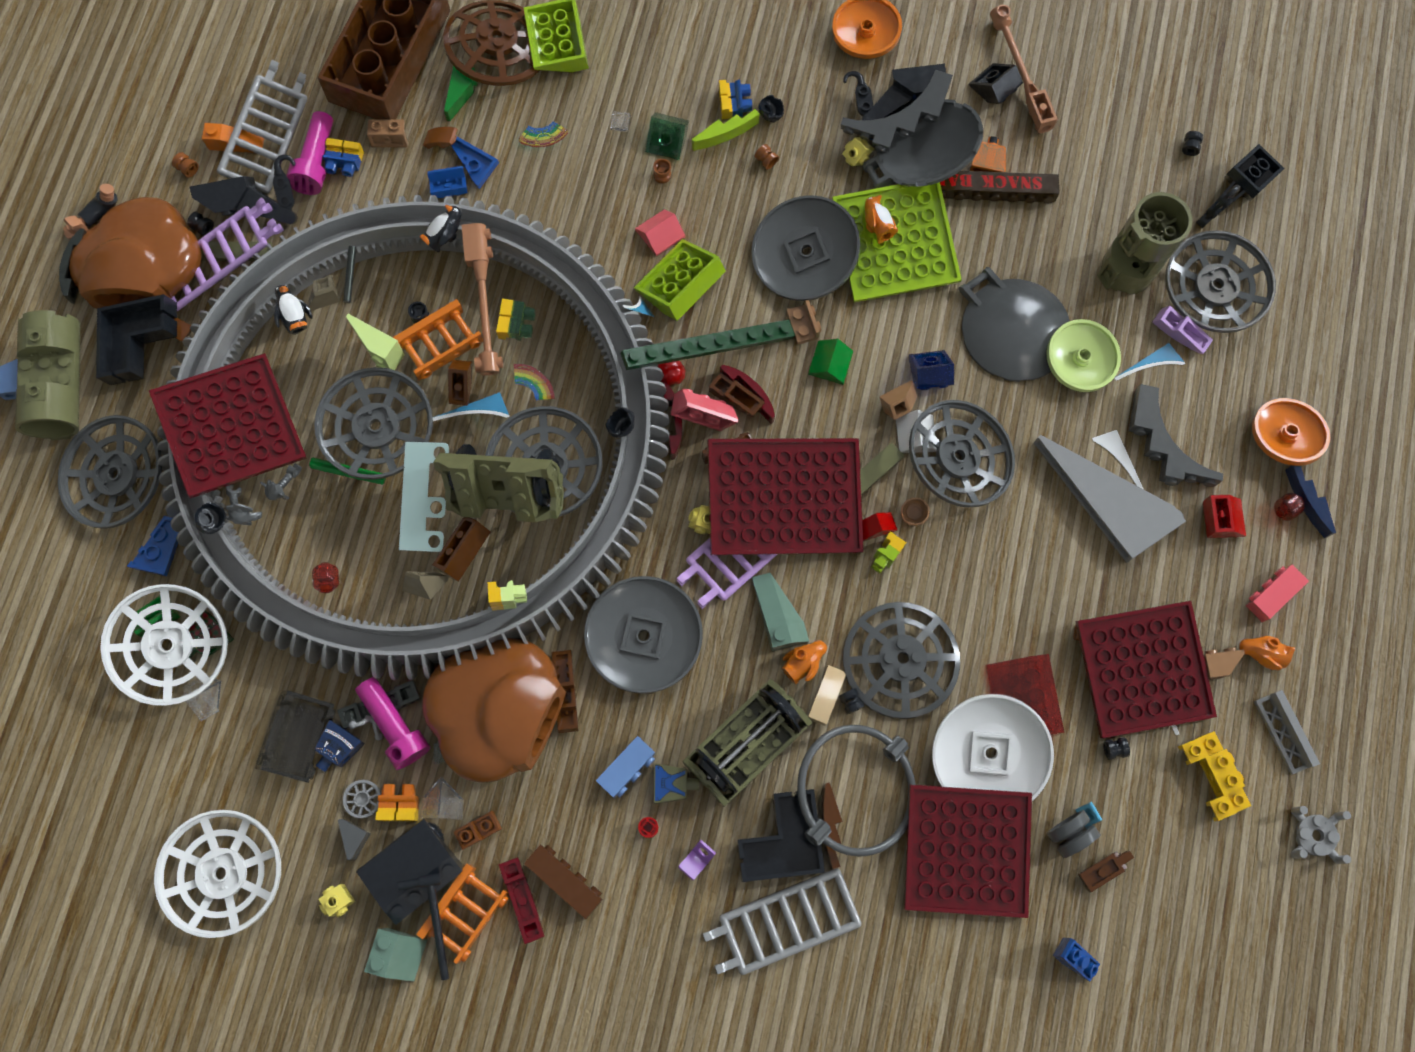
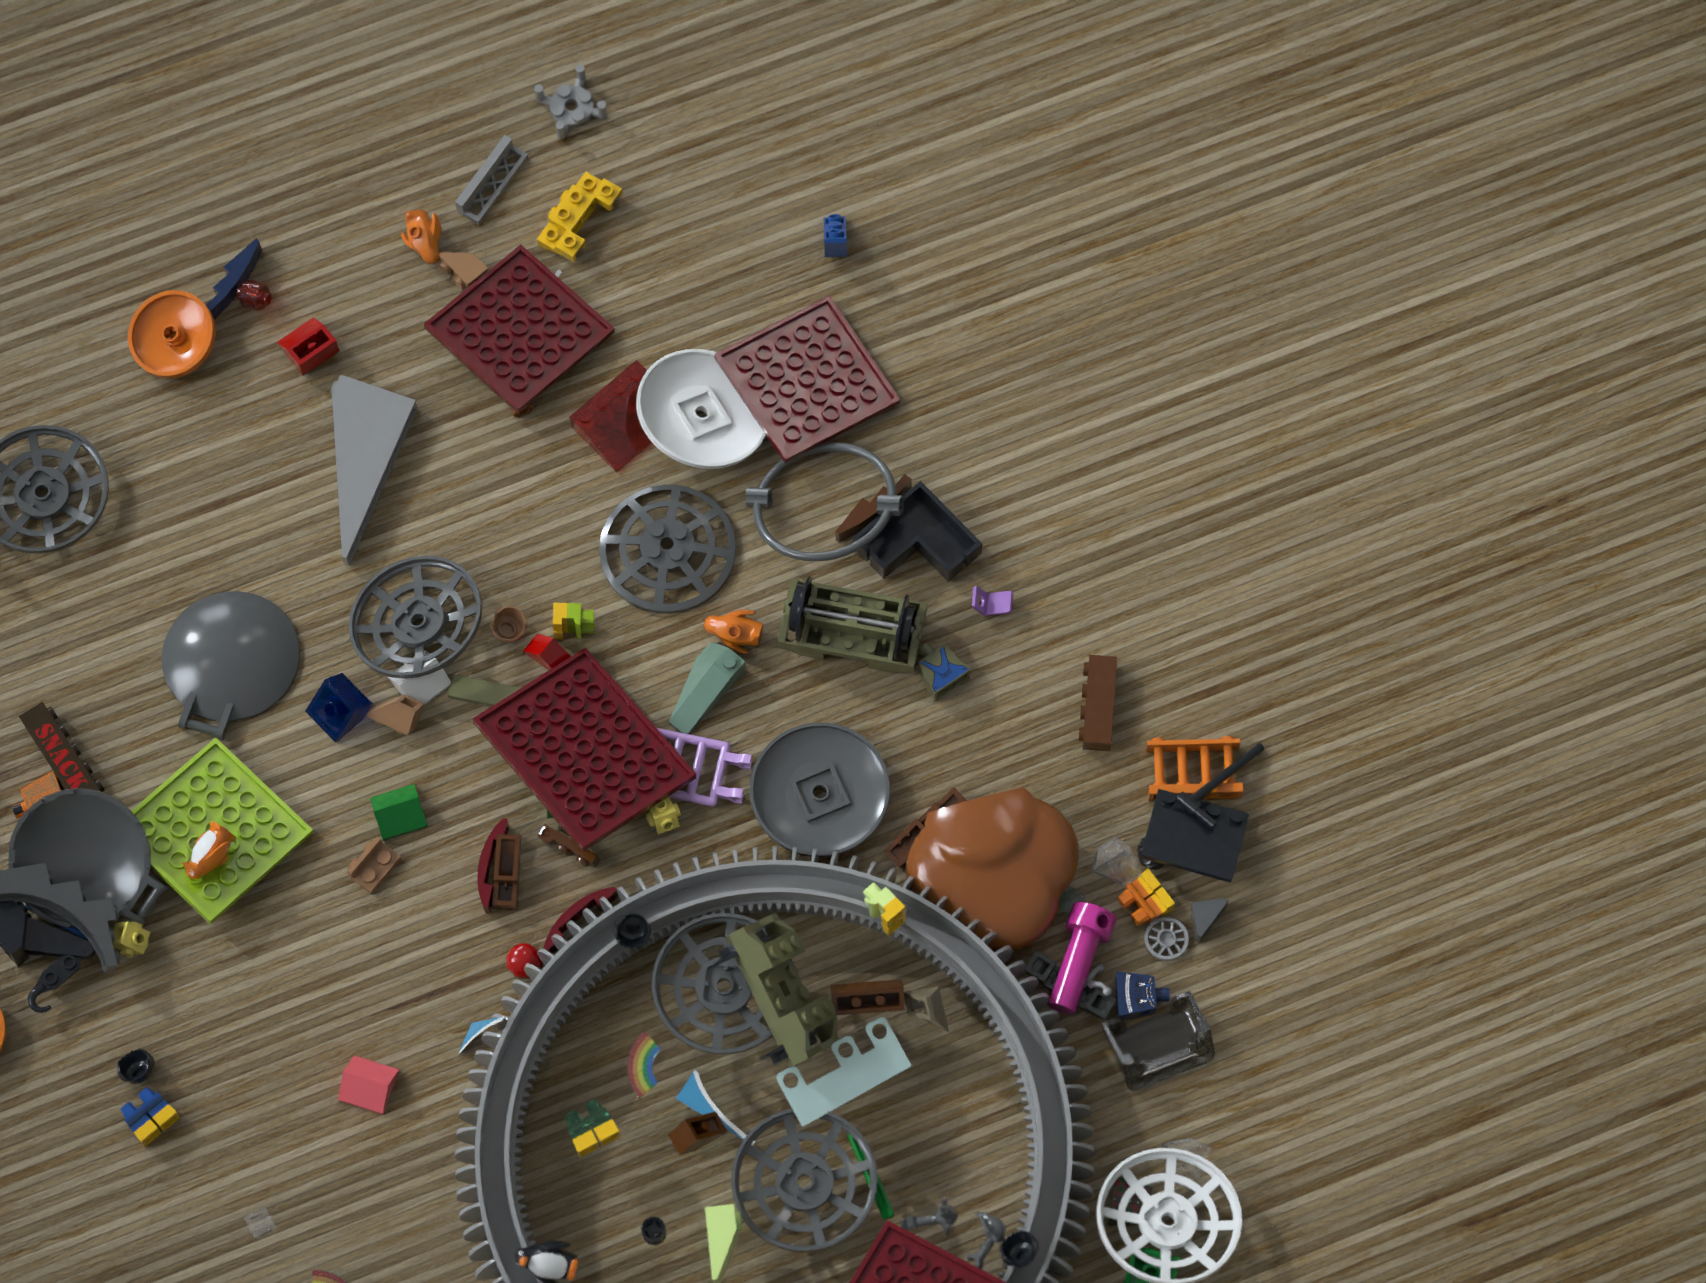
camera: 120 degrees left, 5 degrees down
(206, 871) = (1331, 995): white dish -> none
(325, 577) = (992, 1098): clear red head -> none
(343, 900) = (1270, 886): light yellow brick -> none
(395, 955) = (1274, 799): sand green slope -> none
(437, 321) = (649, 1205): orange fence -> none
(477, 256) = (550, 1208): nougat bar -> none
(477, 830) = (1113, 813): dark orange slope -> none
(522, 900) = (1144, 726): dark red slope -> none
(626, 768) = (956, 720): medium blue brick -> none
(648, 827) = (993, 667): red wheel -> none
(662, 170) = (293, 1125): dark orange wheel -> none
(666, 135) = (245, 1155): clear green slope -> none
(680, 279) = (411, 1022): lime slope -> none
(703, 410) = (547, 887): coral slope -> none
(706, 344) = (476, 925): dark green plate -> none
(720, 133) = (203, 1102): lime slope -> none
(766, 156) = (199, 1032): dark orange wheel -> none
(800, 945) = (1033, 538): light grey bar -> none
(803, 224) = (296, 879): dark grey dish -> none
(827, 695) = (753, 589): tan slope -> none
(853, 705) = (743, 563): black wheel -> none
(1075, 836) = (726, 298): dark grey wheel -> none
(1083, 355) = (221, 569): yellowish green dish -> none
(1091, 812) = (696, 300): medium azure slope -> none
(1105, 870) = (736, 258): reddish brown hinge -> none
(1113, 443) = (296, 491): white sticker -> none
(1116, 748) = (615, 311): black wheel -> none
(1145, 243) = (68, 566): olive cylinder -> none
(1159, 445) = (253, 470): dark grey arch -> none
(1162, 356) = (161, 500): dark azure sticker -> none
(1182, 330) = (120, 496): lavender slope -> none
(1276, 592) = (355, 259): coral brick -> none

